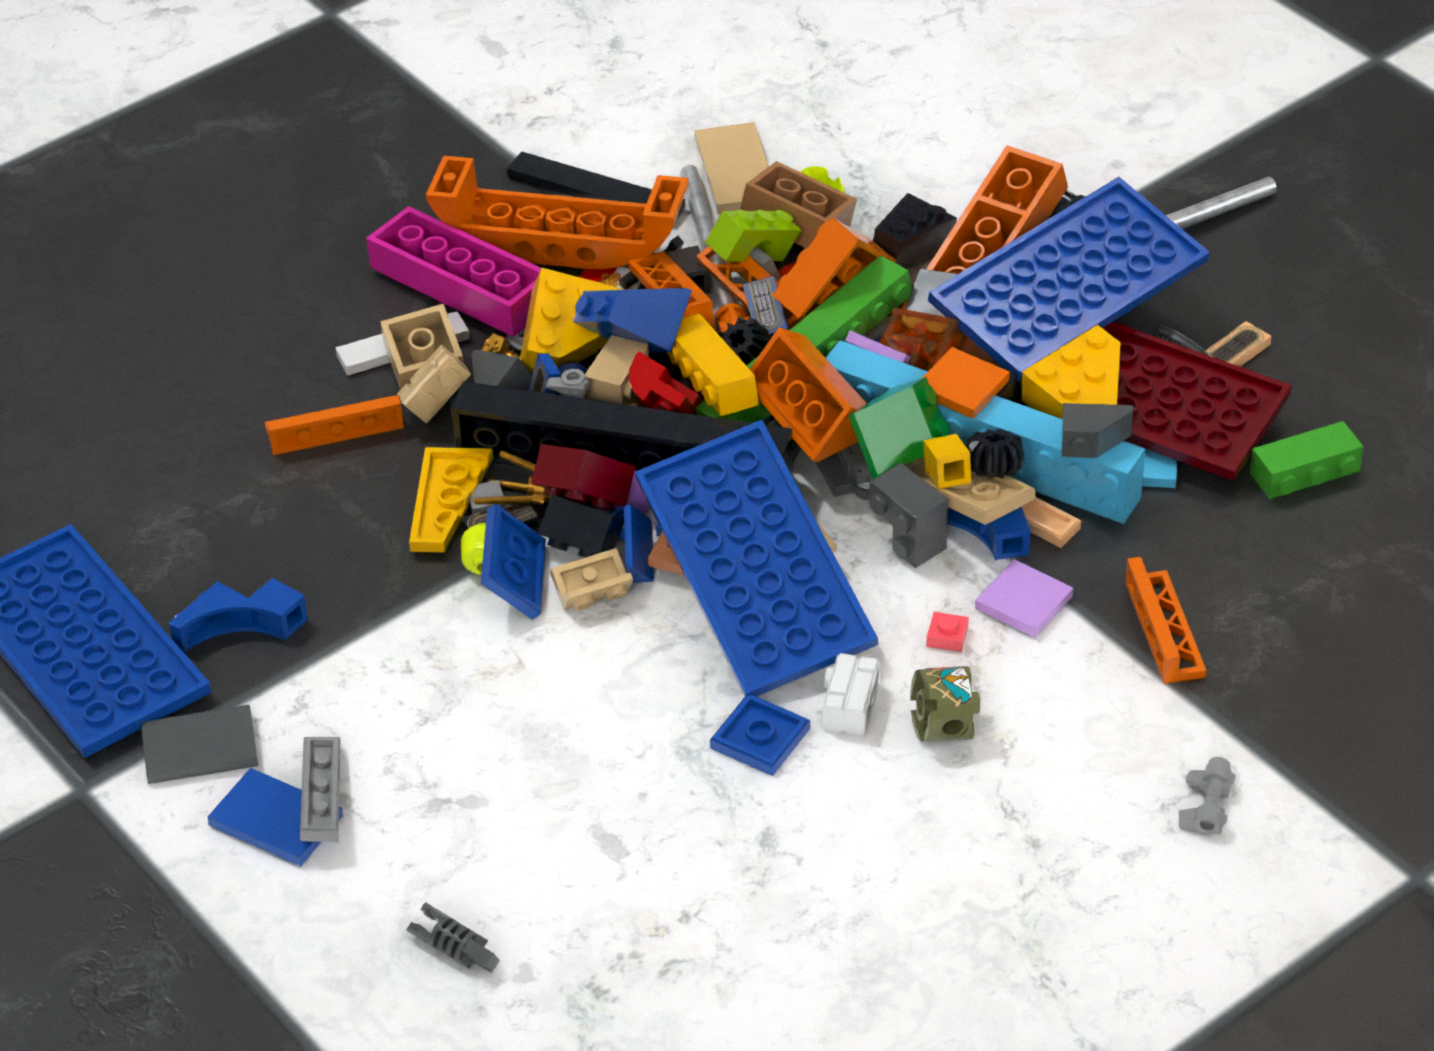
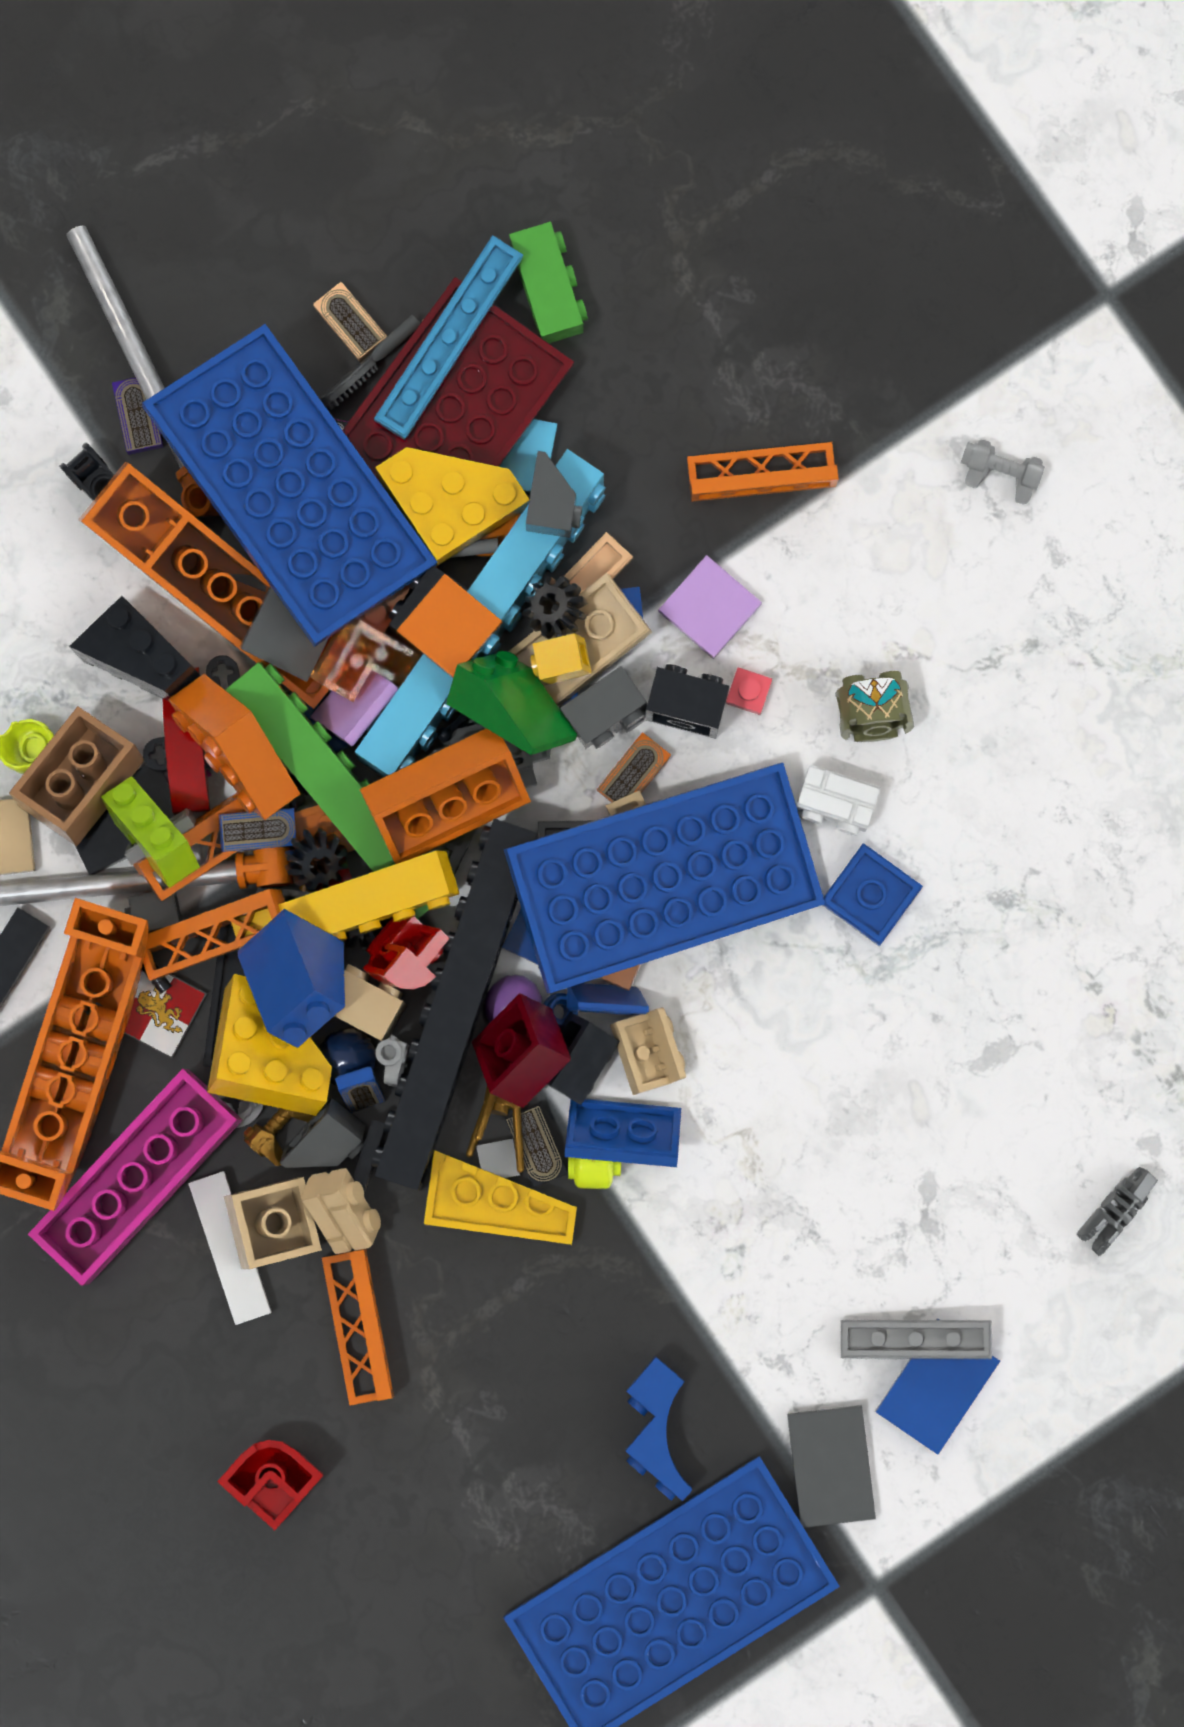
camera: 85 degrees left, 40 degrees up
(200, 371) = (270, 1480): none -> red brick
(861, 559) = (634, 769): none -> tile
(926, 569) = (687, 701): none -> black brick
(1234, 383) = (448, 337): none -> dark azure tile

